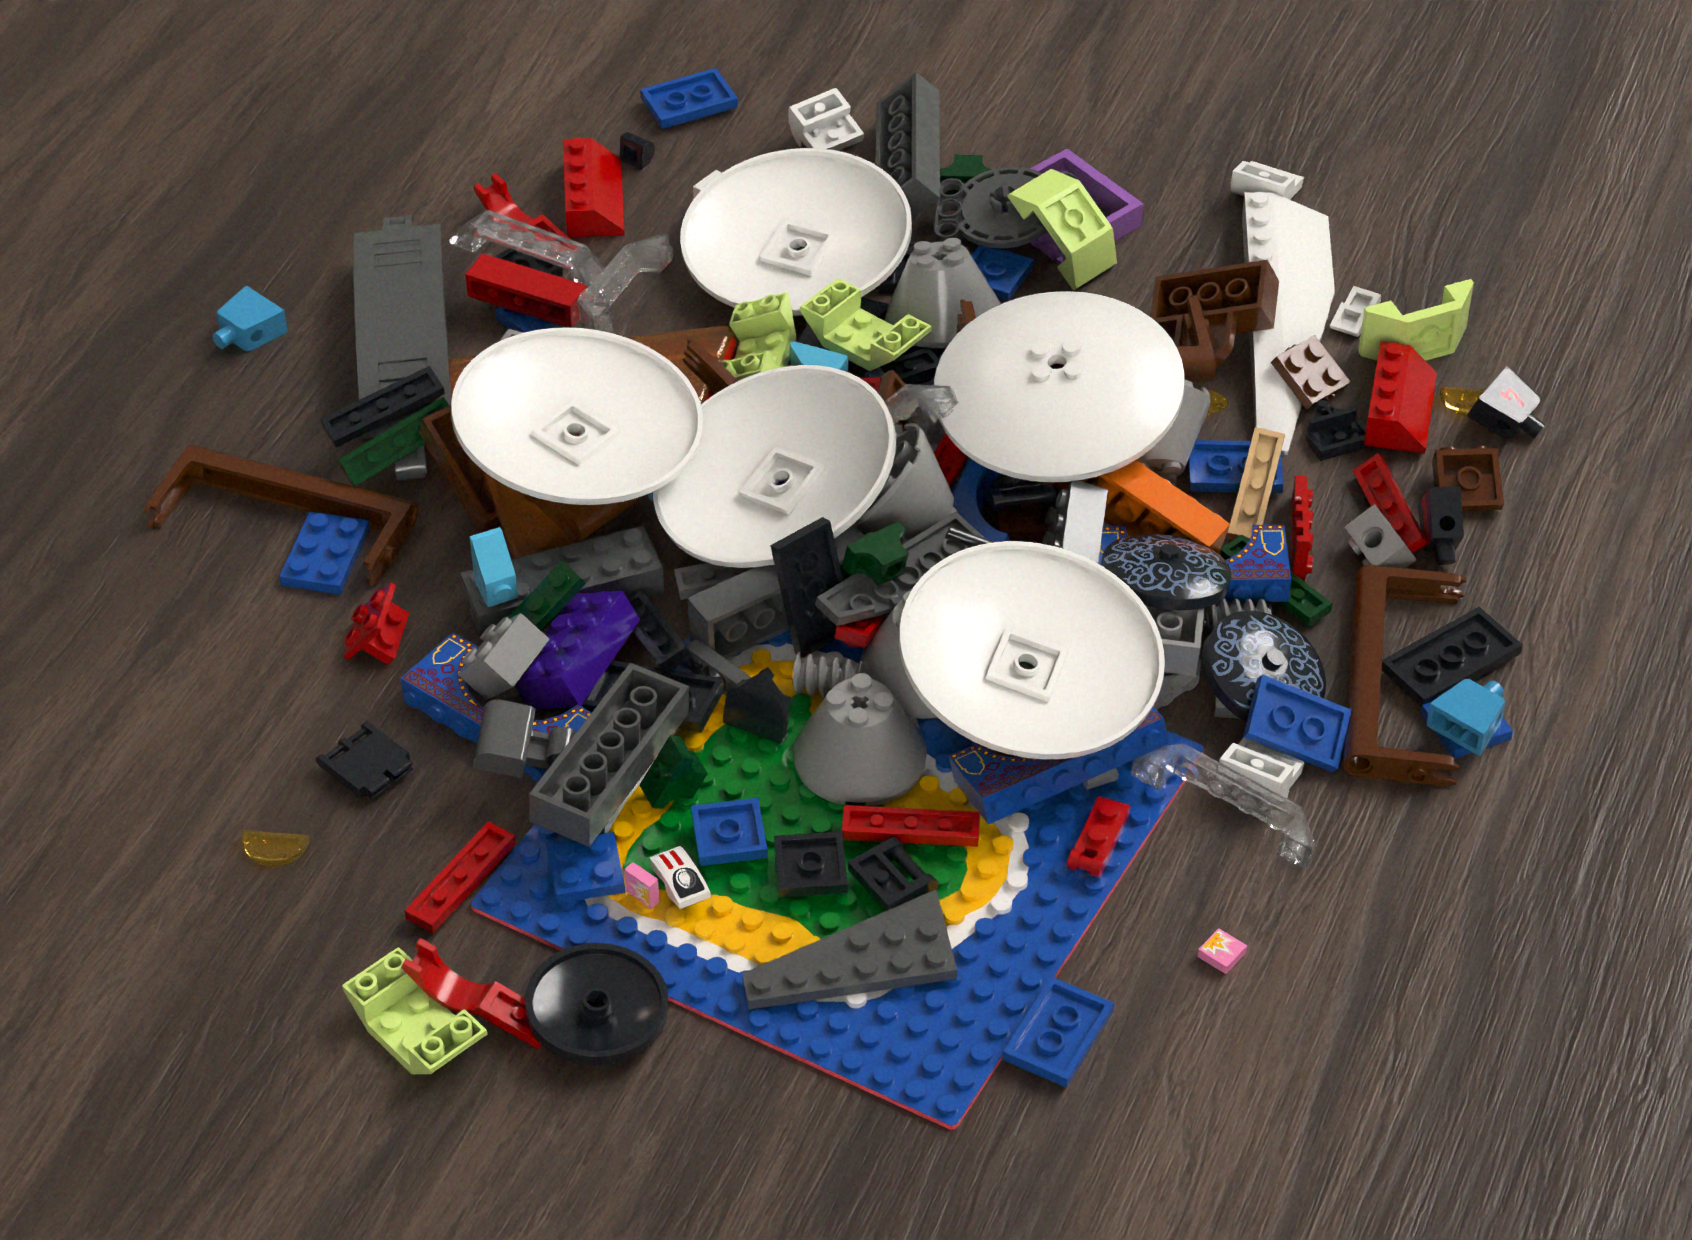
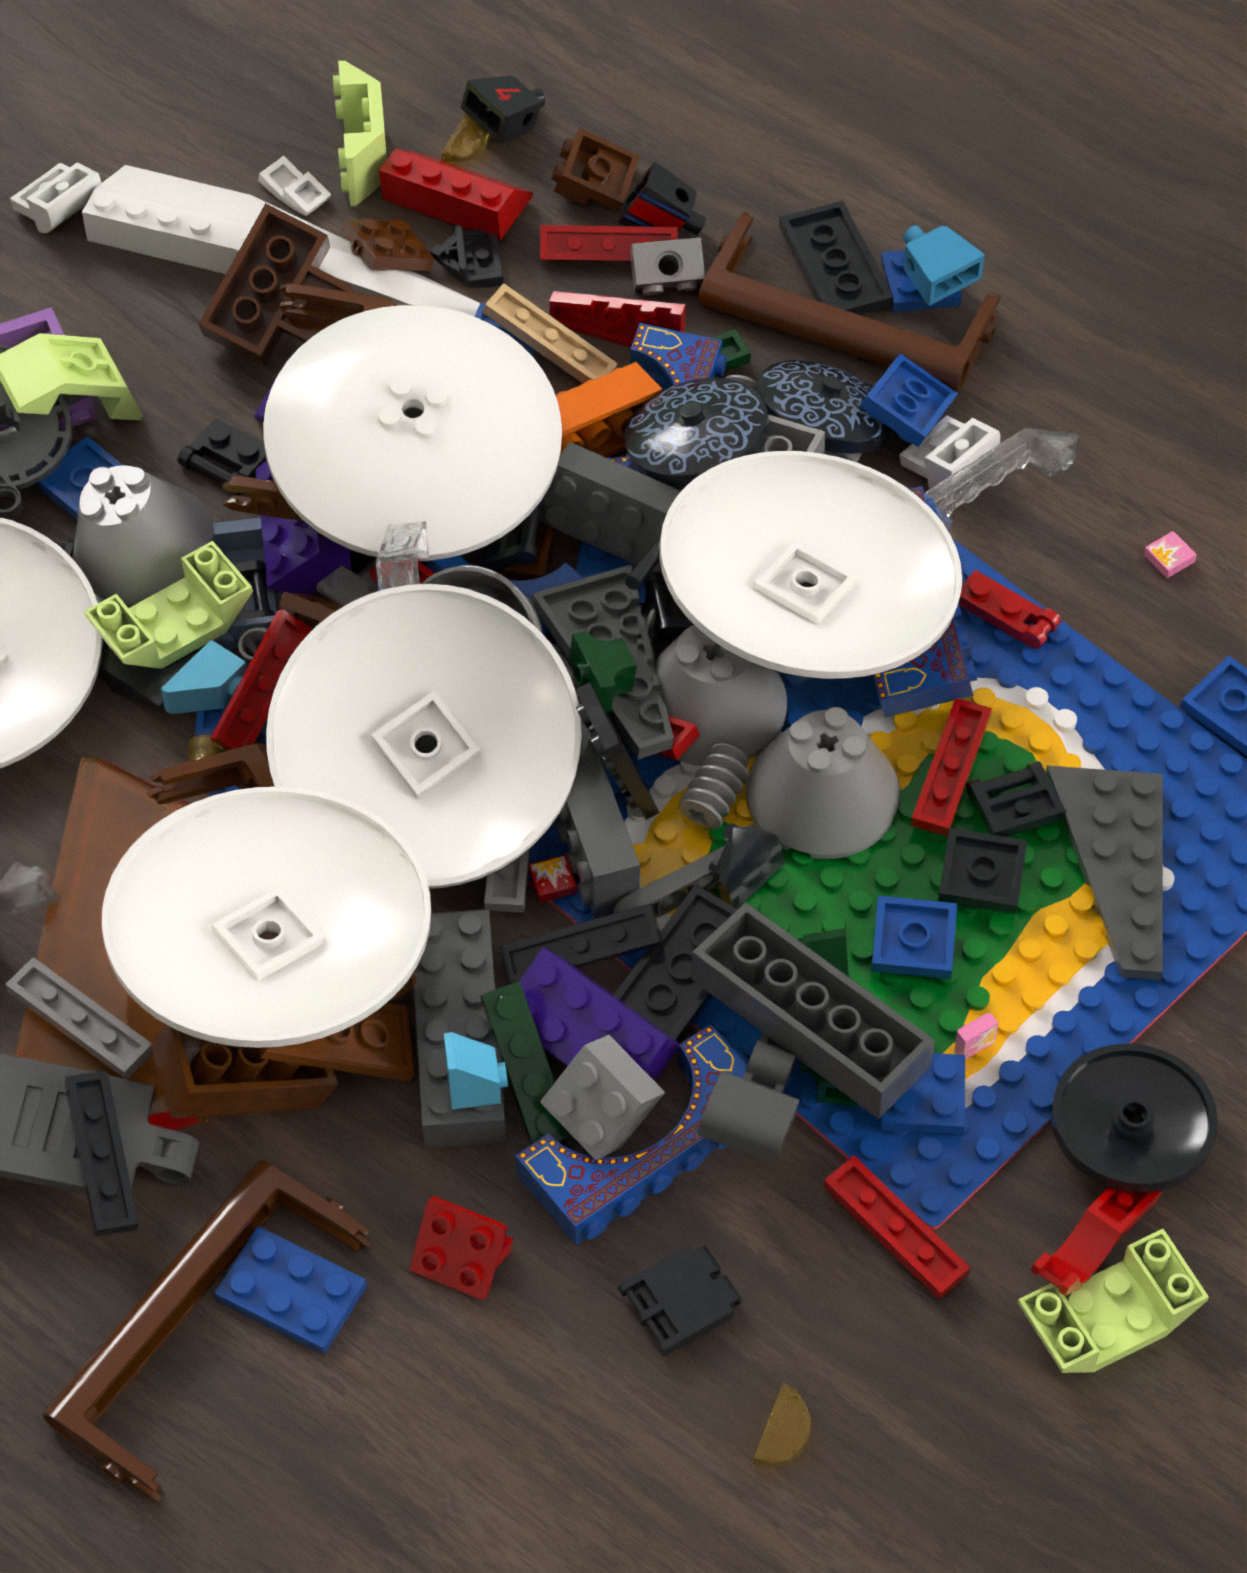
camera: 75 degrees left, 10 degrees up
(388, 446) = (165, 1153): dark green plate -> none
(680, 876) = (967, 998): slope -> none
(764, 334) = (129, 729): yellowish green slope -> none

